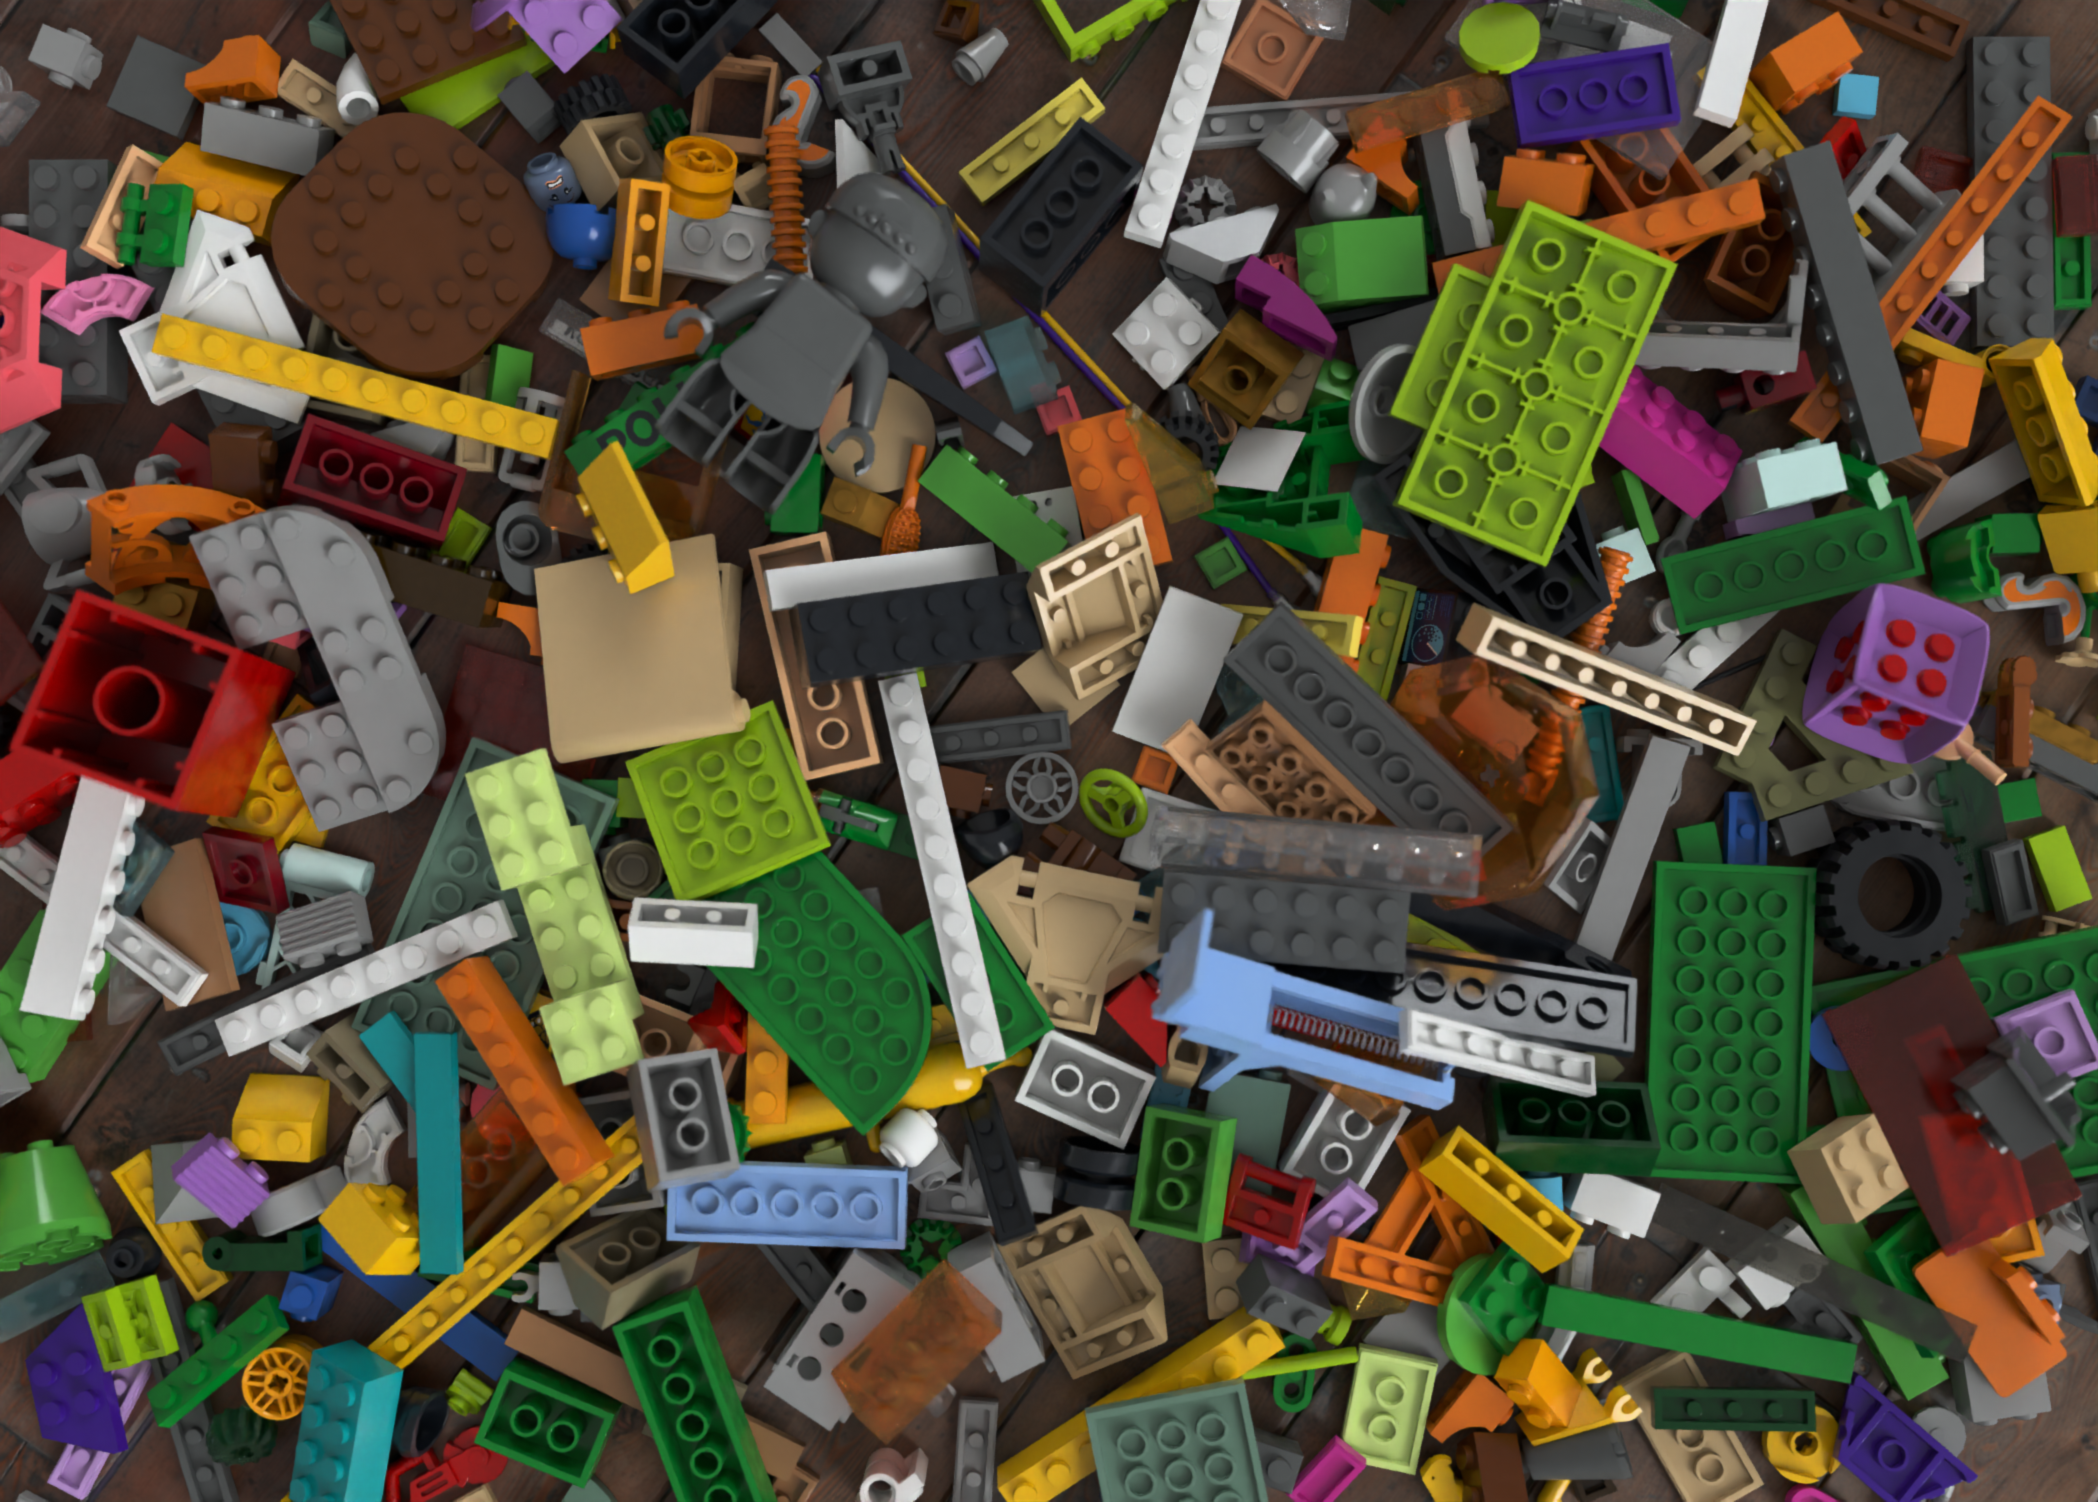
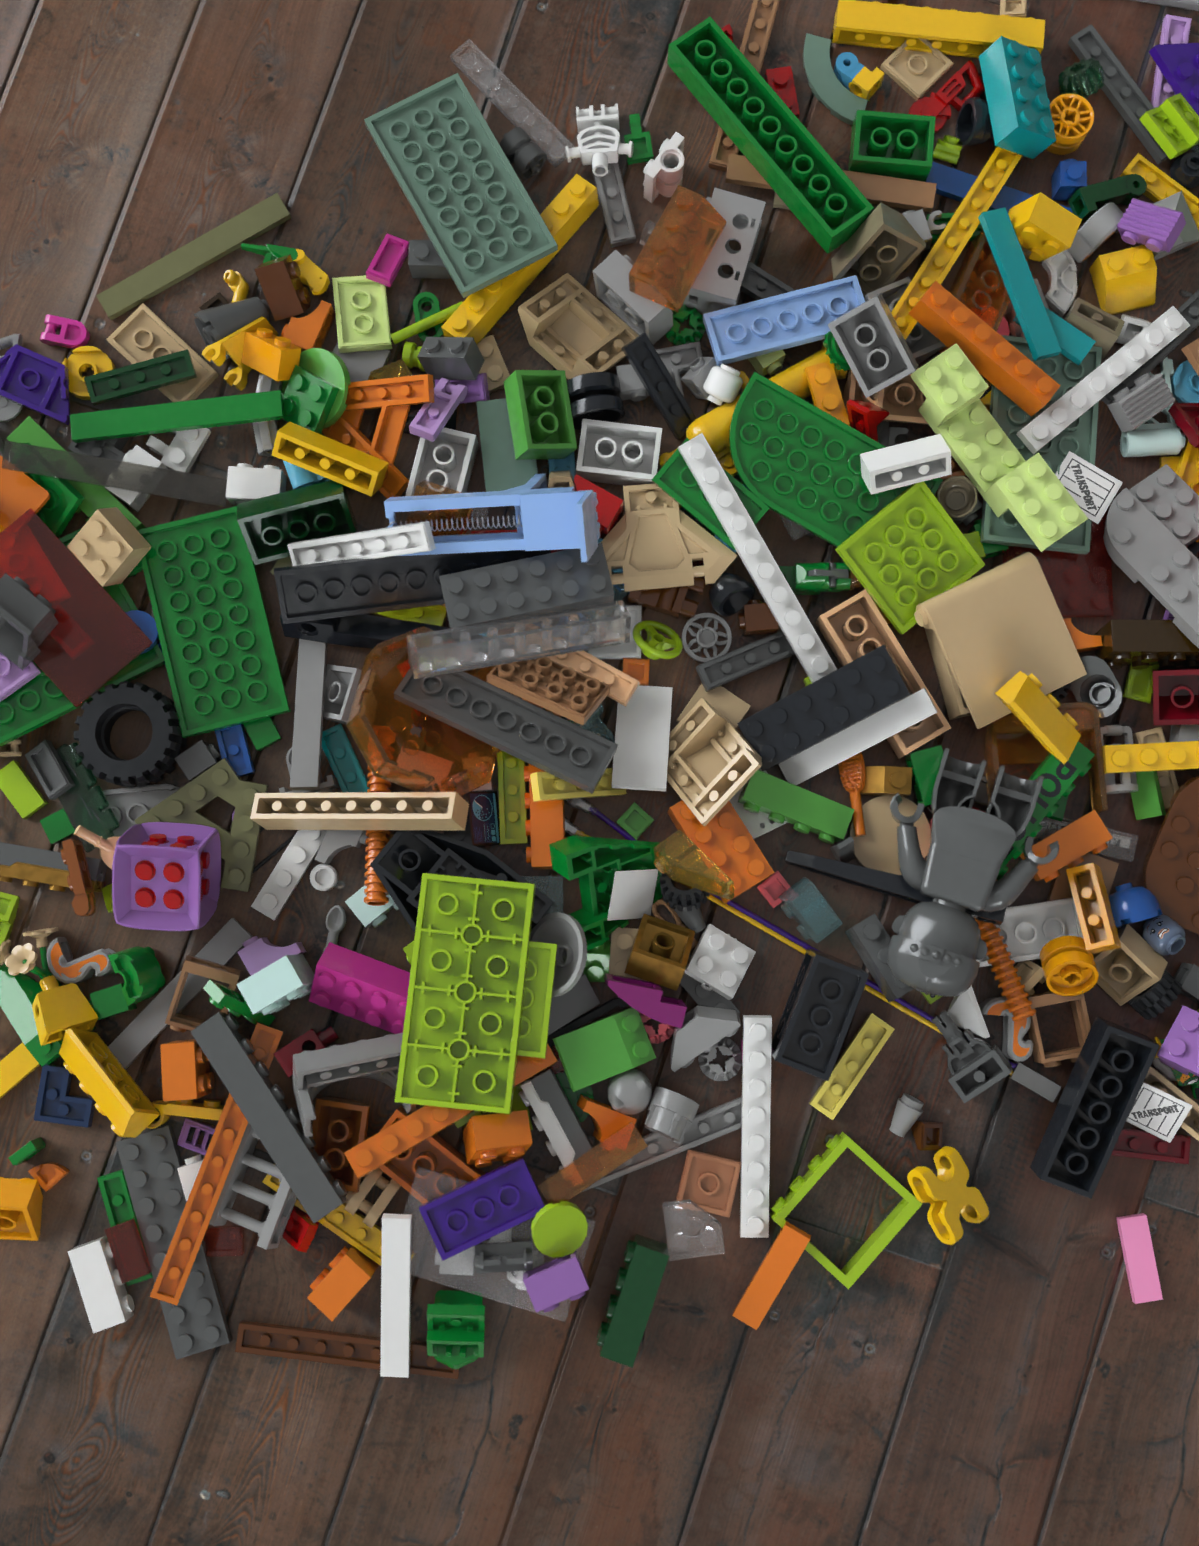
camera: 165 degrees right, 5 degrees down
(218, 1358) = (1112, 122): green plate -> none
(444, 831) = (1088, 486): none -> white sticker
(665, 126) = (1100, 998): dark green gear -> none
(971, 362) = (844, 904): lavender tile -> none
(1264, 1214) = (479, 404): red plate -> none
(1635, 505) = (368, 941): bright green tile -> none
(1792, 565) = (255, 930): green plate -> none
(1856, 96) = (298, 1275): medium azure tile -> none

